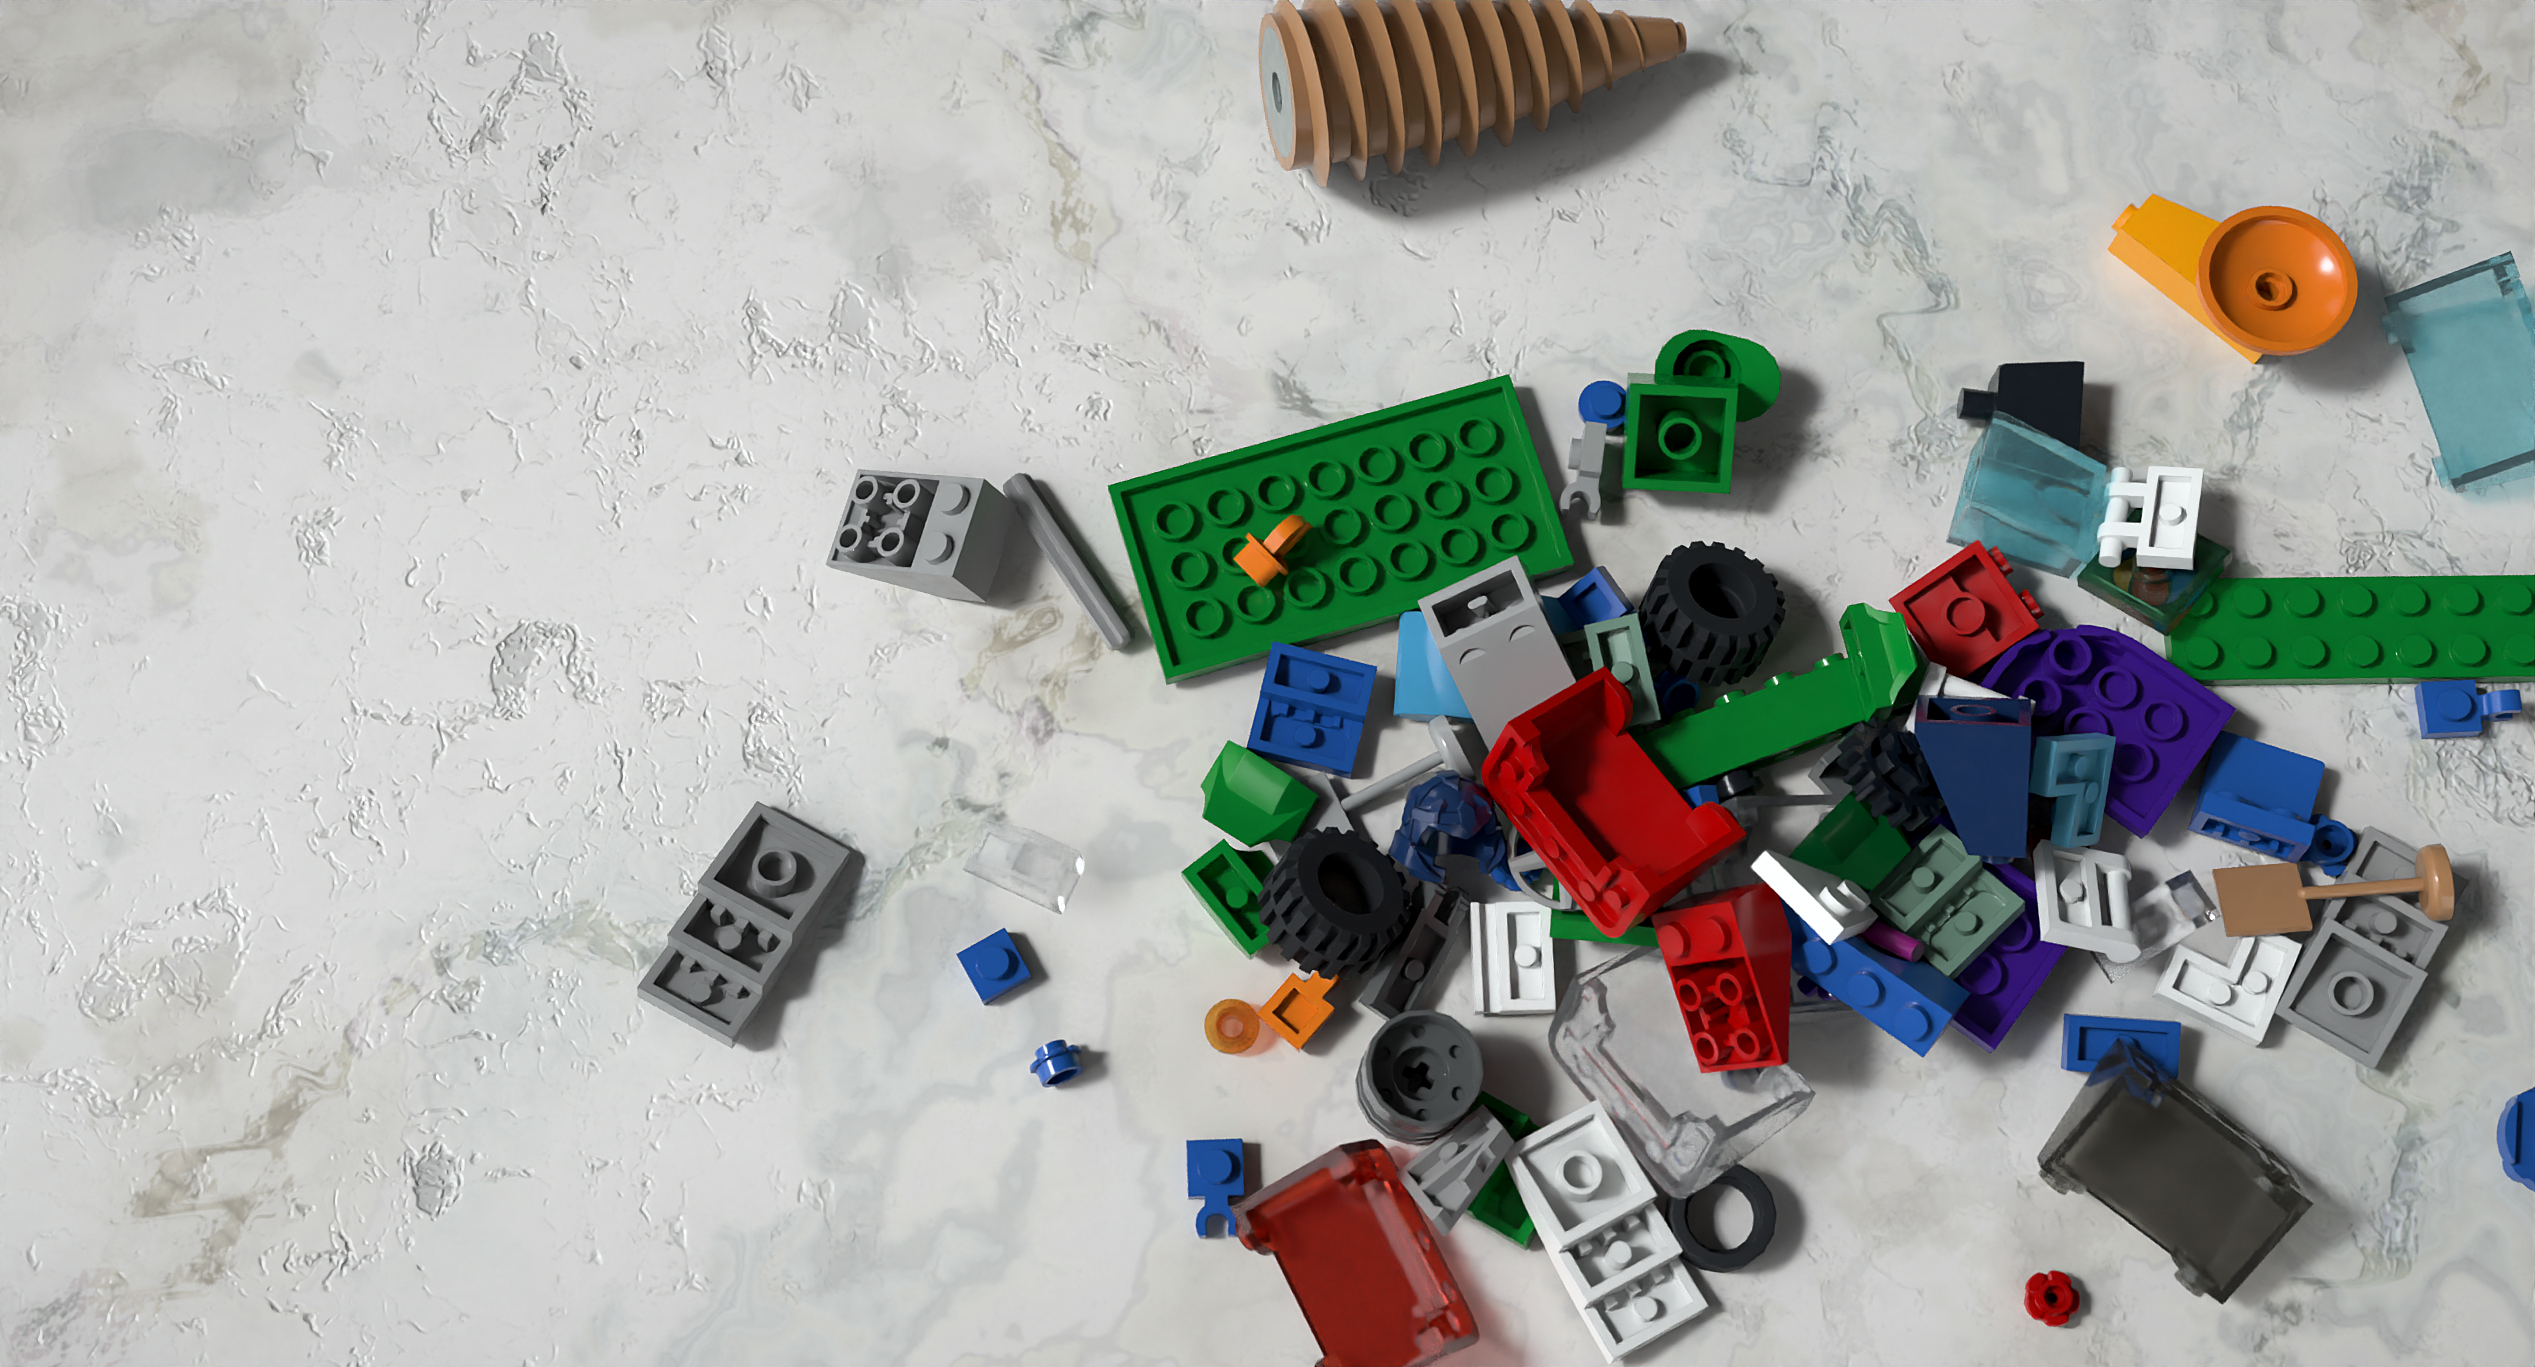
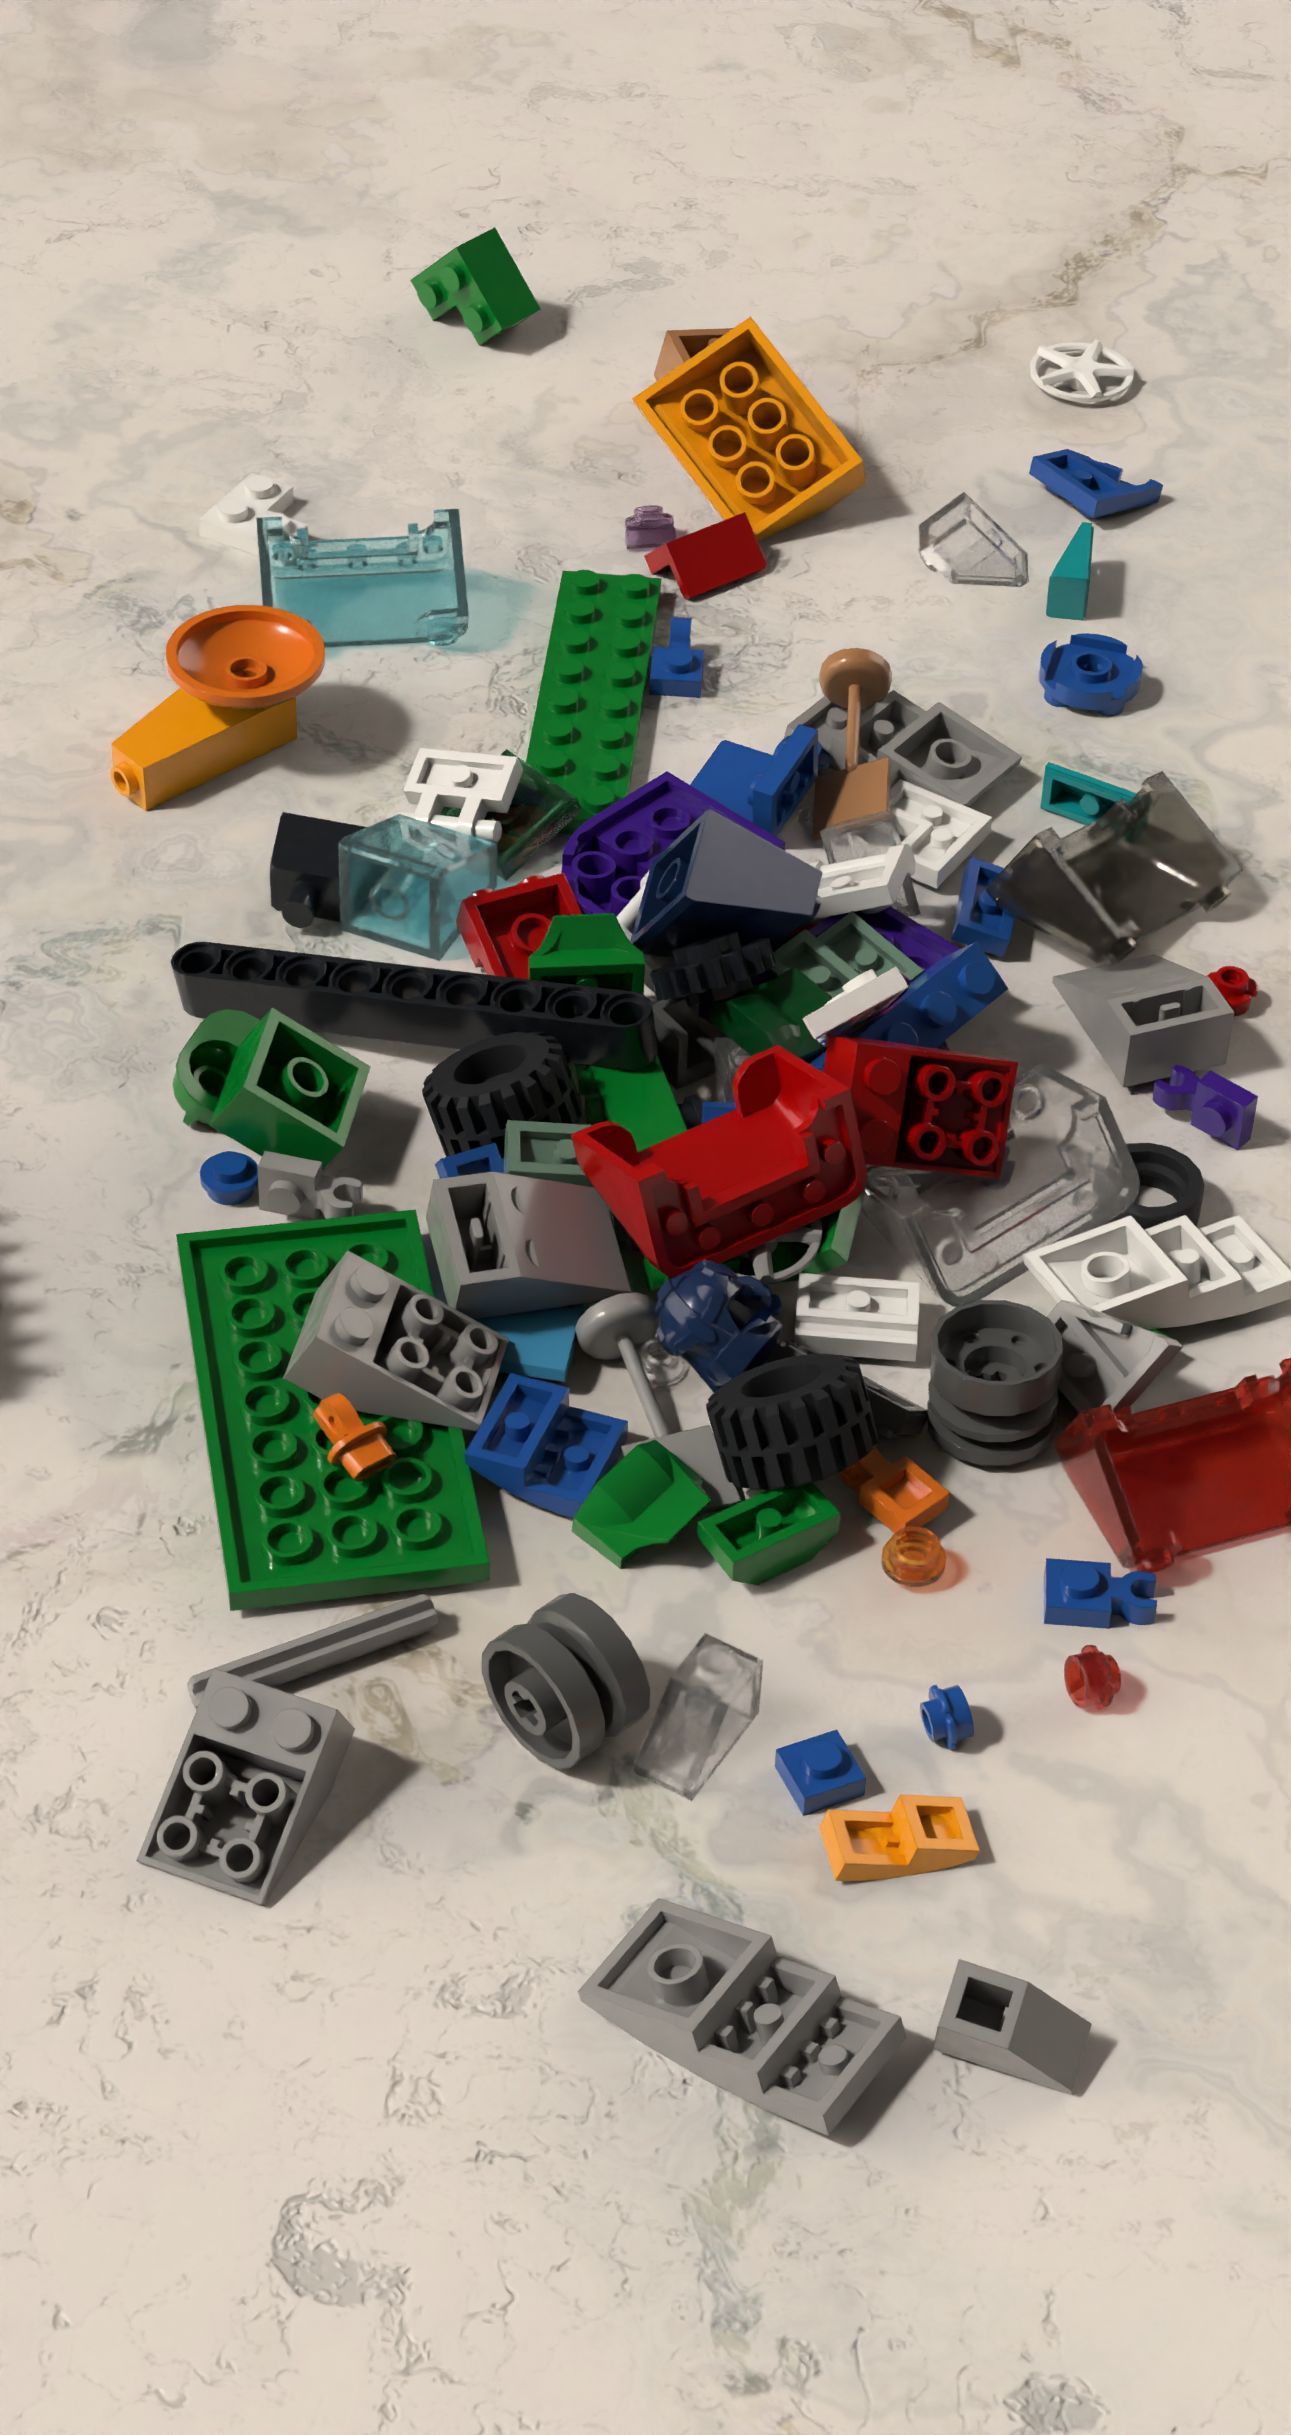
camera: 85 degrees left, 30 degrees down
(730, 1123) = (1011, 2028): none -> light grey slope
(931, 1033) = (912, 1839): none -> light orange slope
(1023, 748) = (565, 1680): none -> dark grey wheel
(1112, 1183) = (1091, 1678): none -> clear red plate
(1373, 571) = (395, 1349): none -> light grey slope
(1817, 538) = (415, 1002): none -> black beam
(1852, 1284) = (1215, 1102): none -> dark purple plate
(1982, 1207) = (1149, 1017): none -> light grey slope
(2326, 1148) = (1078, 795): none -> teal slope

